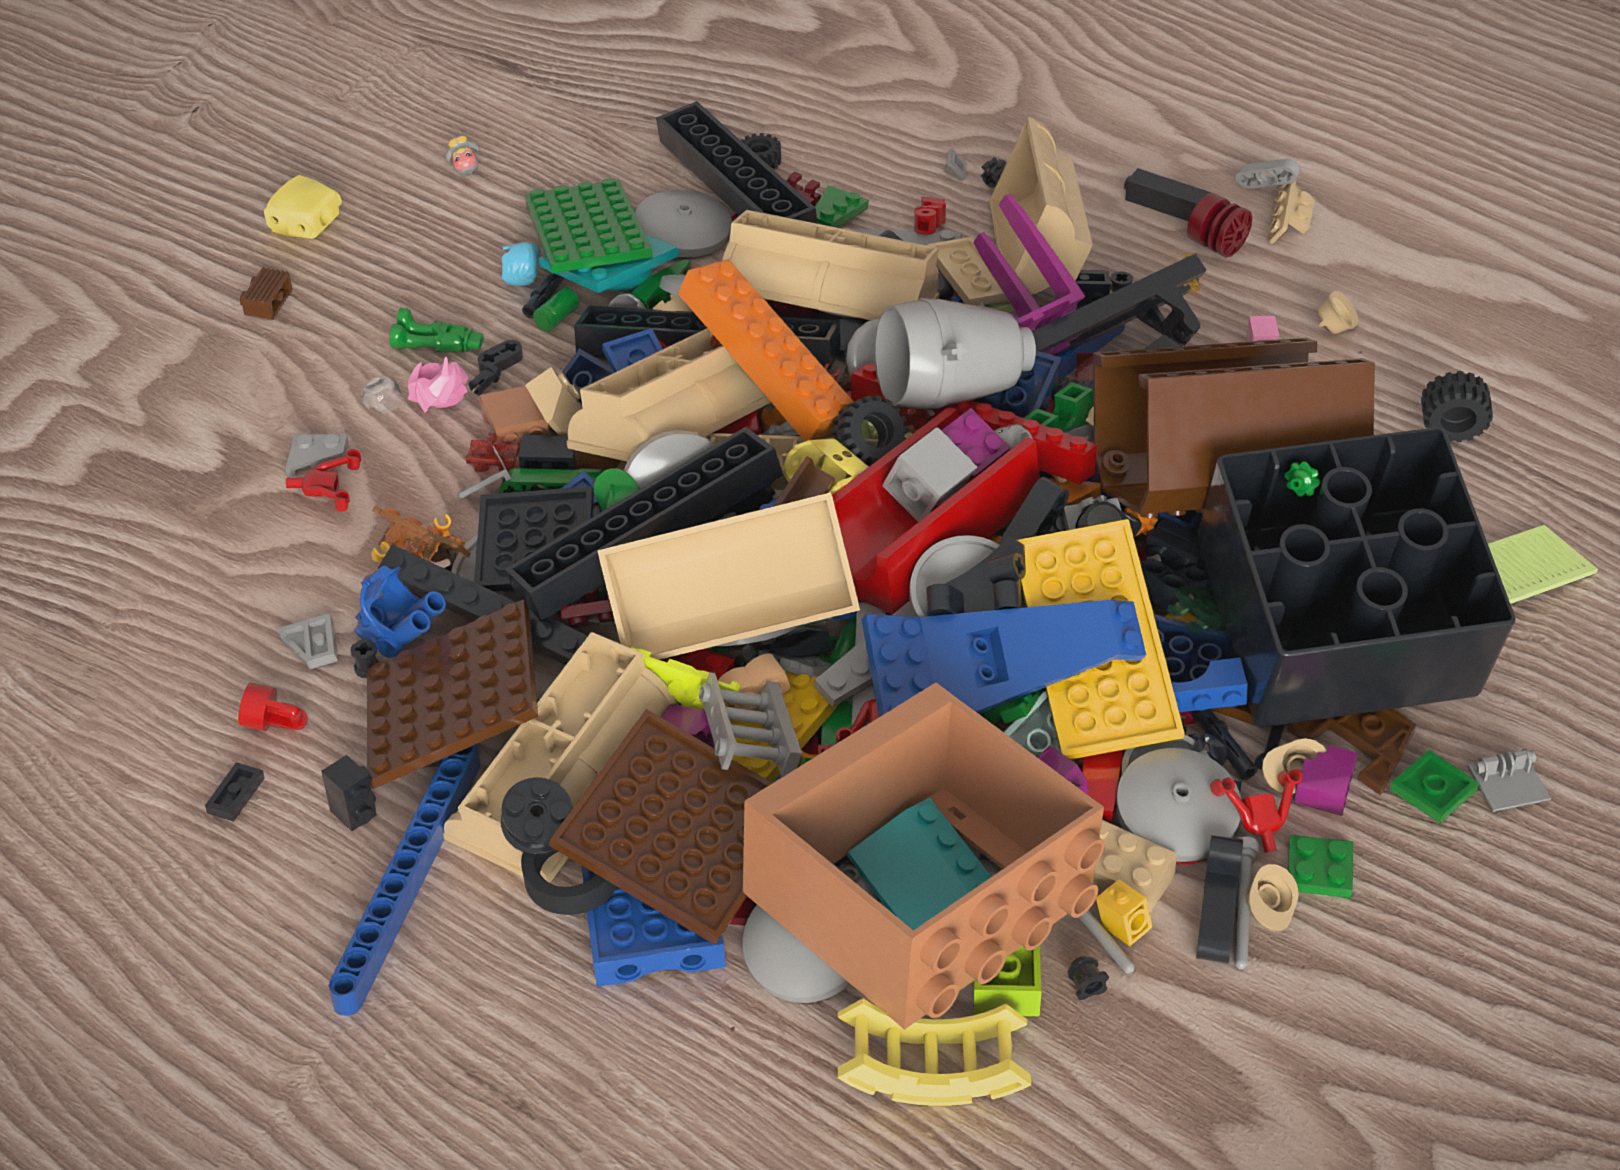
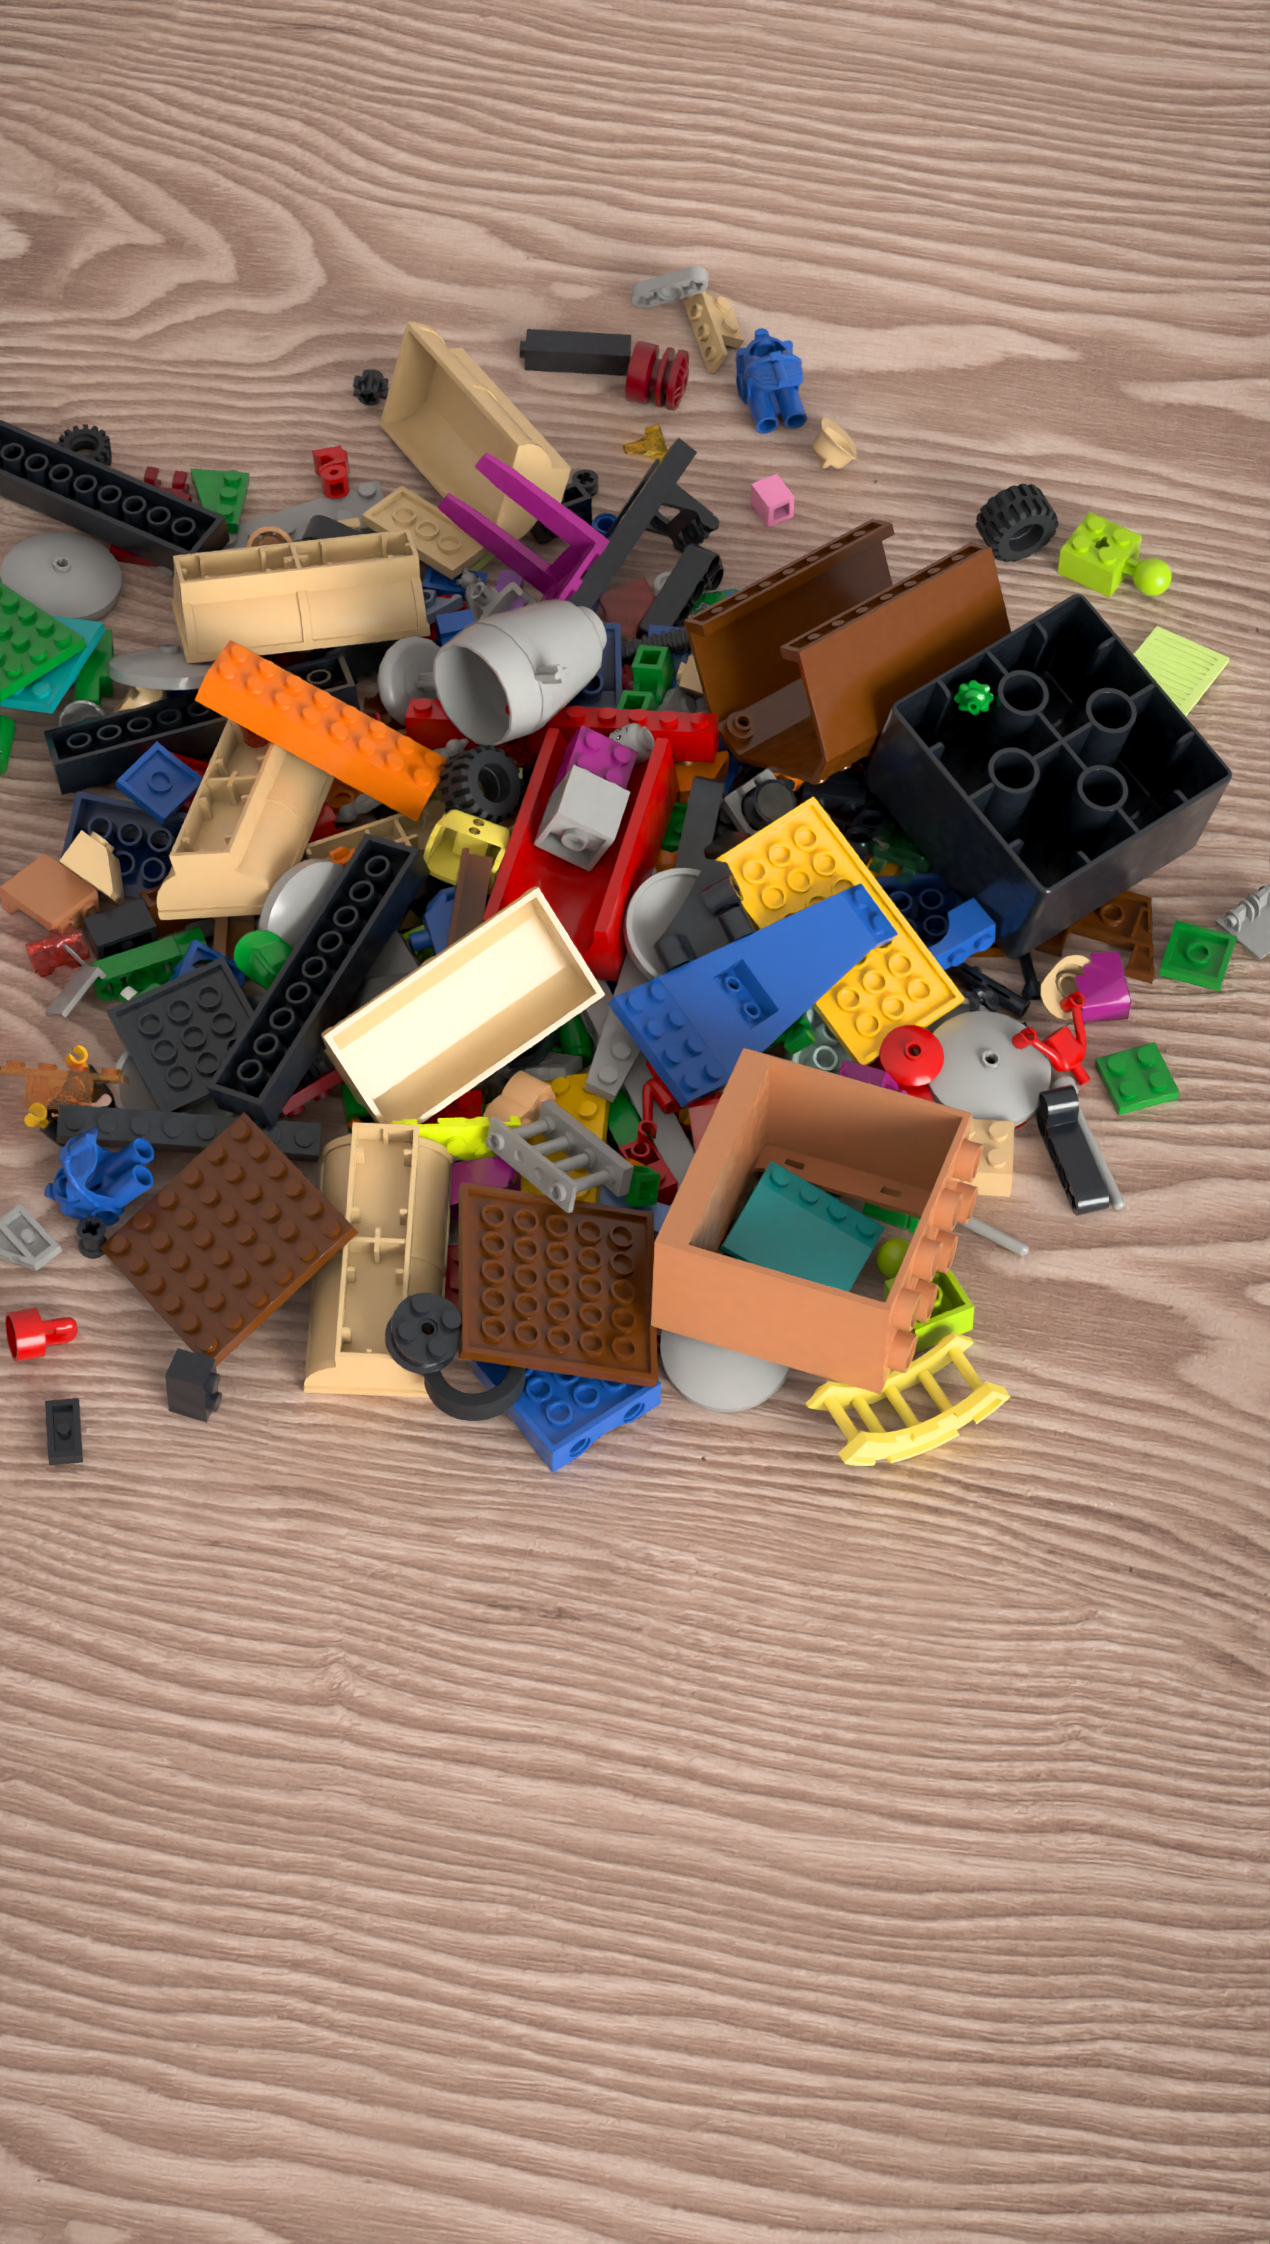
camera: 30 degrees left, 10 degrees up
(401, 882) = (303, 1452): blue beam -> none
(955, 165) = (315, 391): light grey slope -> none
(1087, 977) = (995, 1274): black brick -> none
(1108, 775) = (909, 1069): none -> dish
(1124, 912) = (997, 1199): yellow head -> none
(1273, 897) = (1117, 1129): tan piece -> none
(1304, 238) = (770, 382): none -> blue helmet
(1525, 456) = (1105, 553): none -> lime brick

